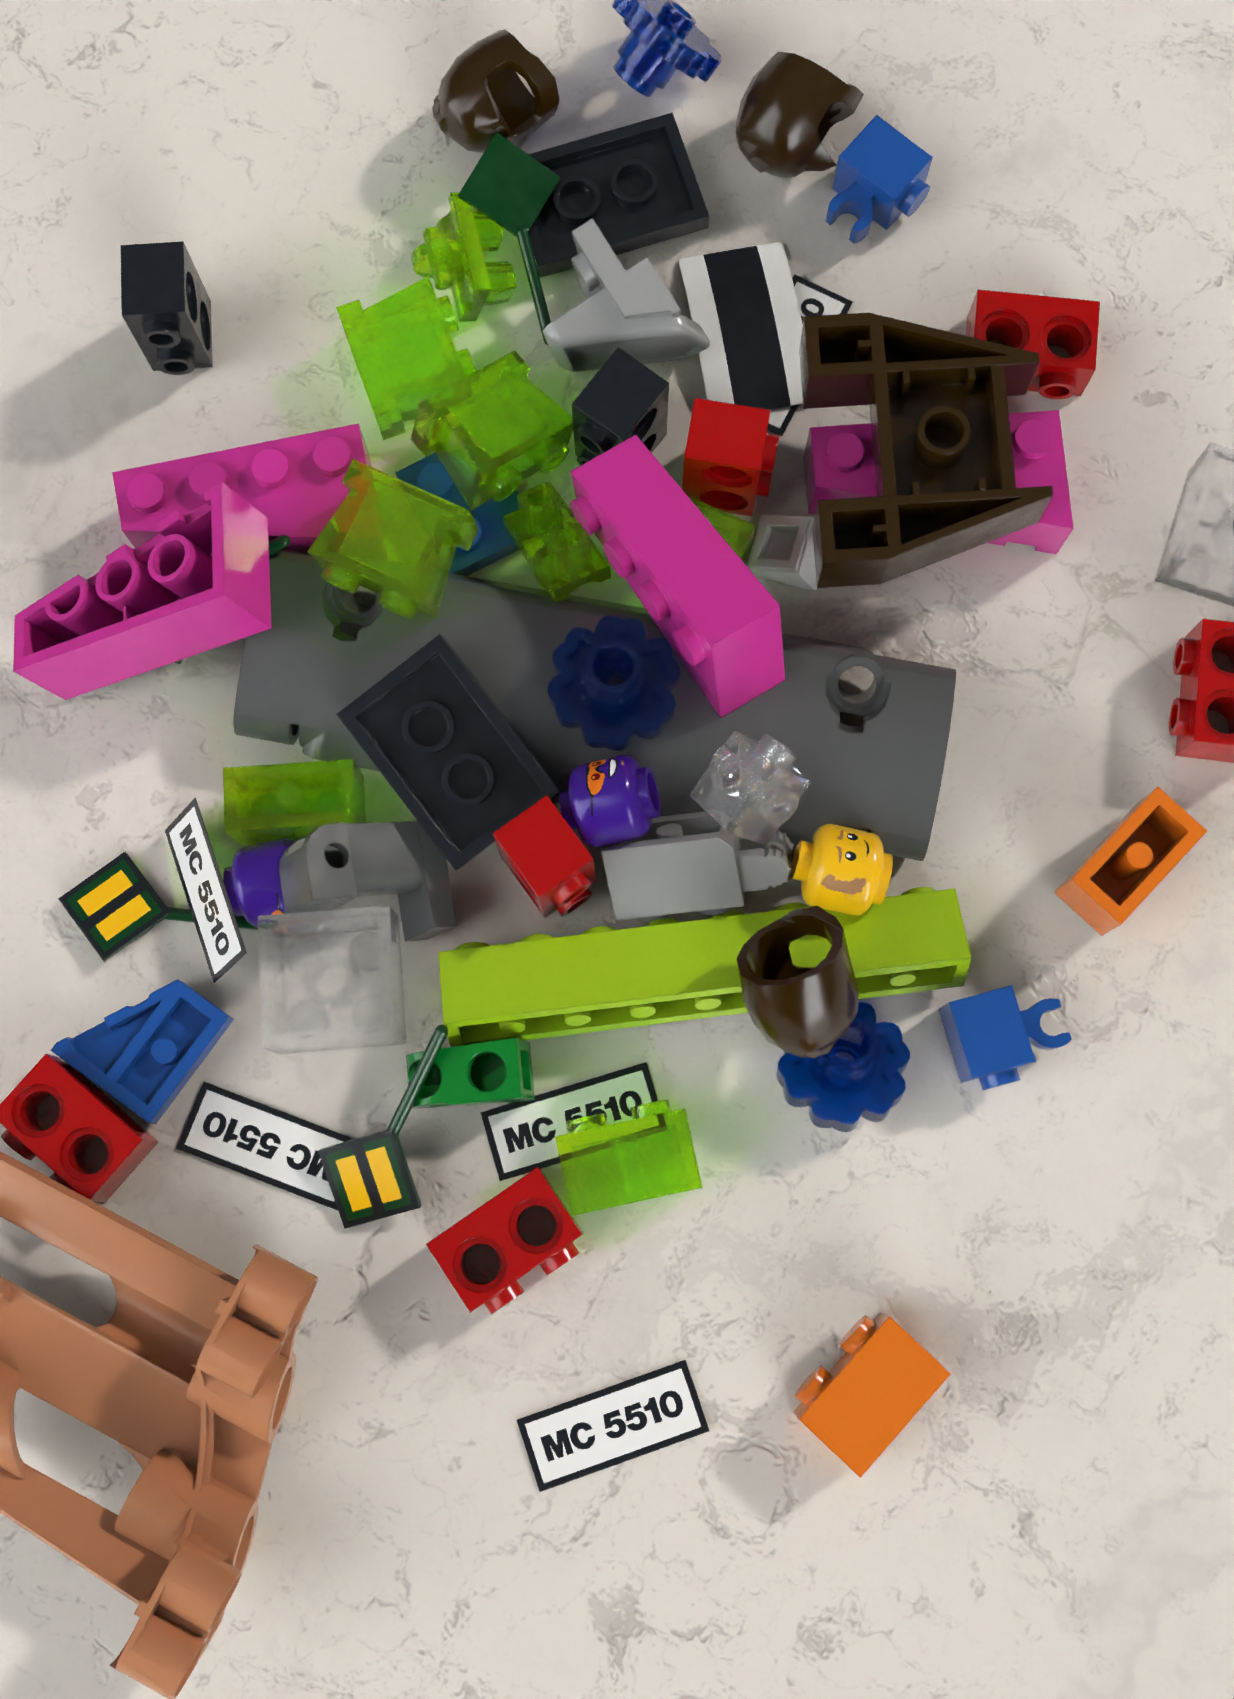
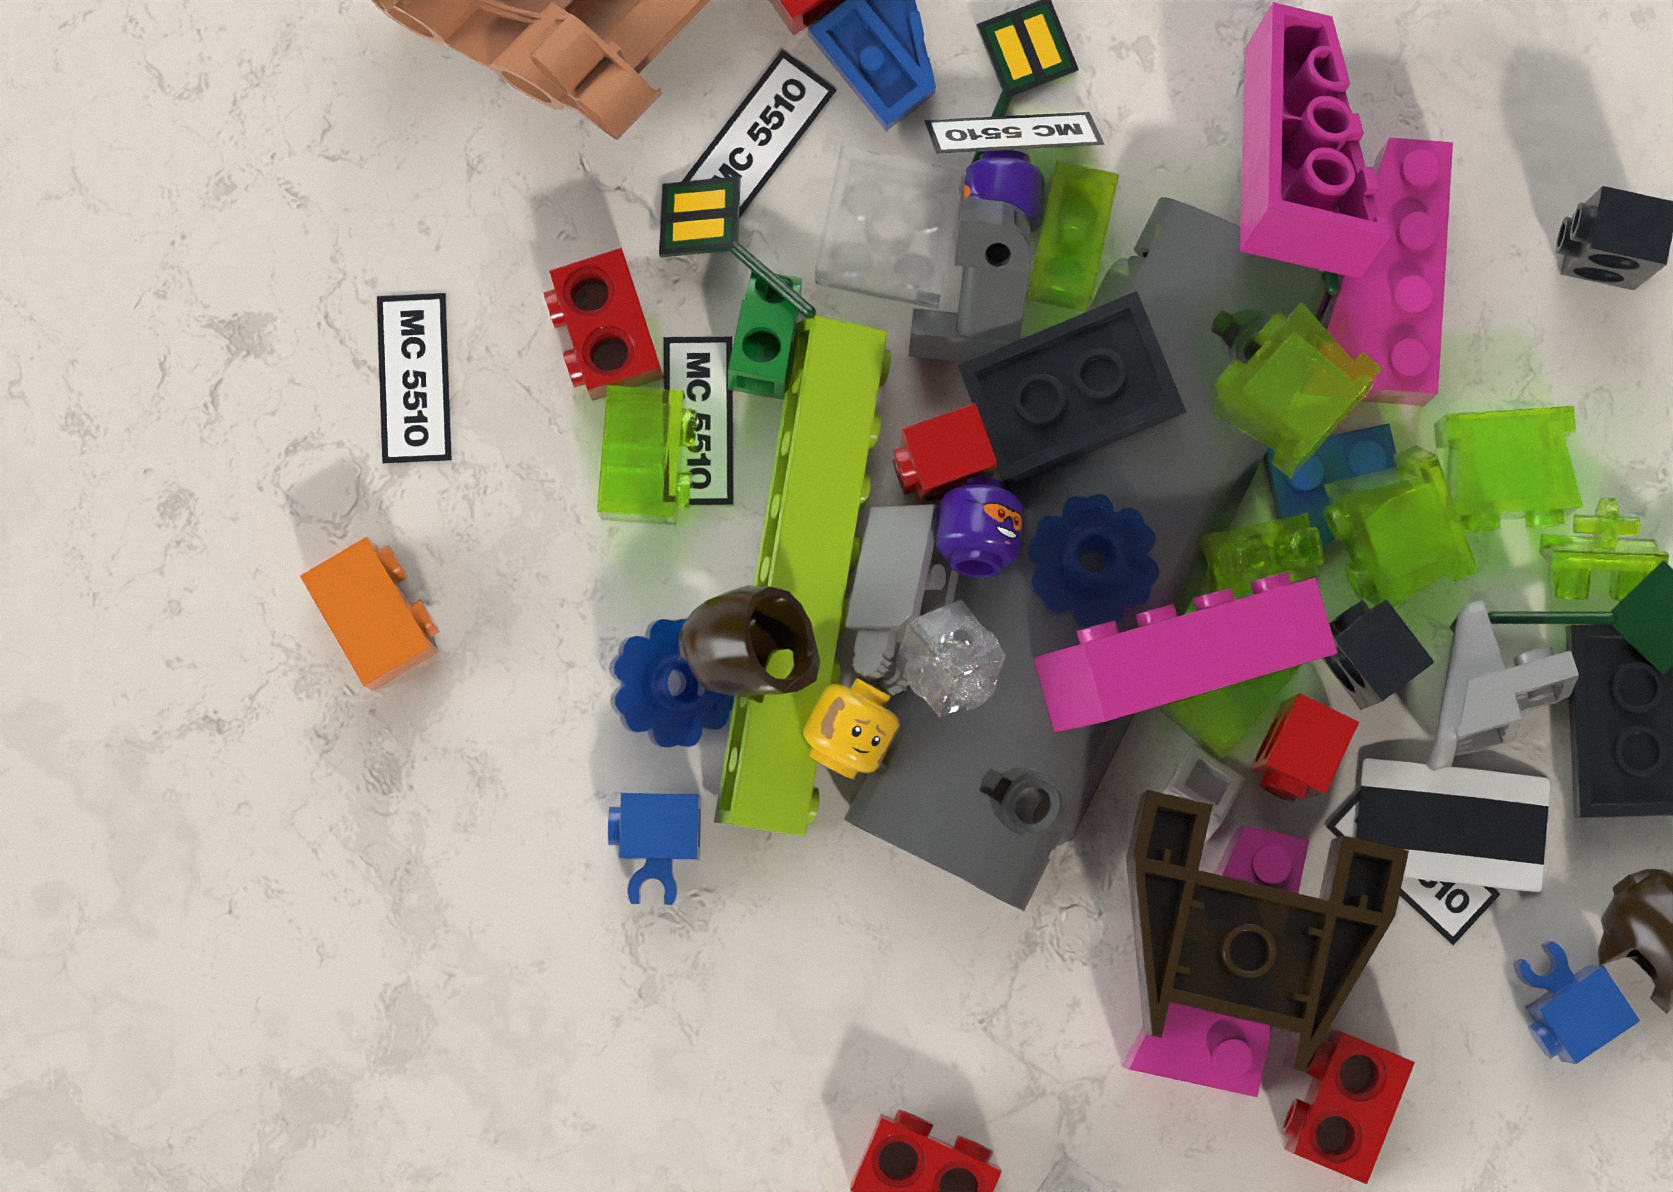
camera: 105 degrees right, 5 degrees up
(1130, 861) = (782, 1016): orange brick -> none

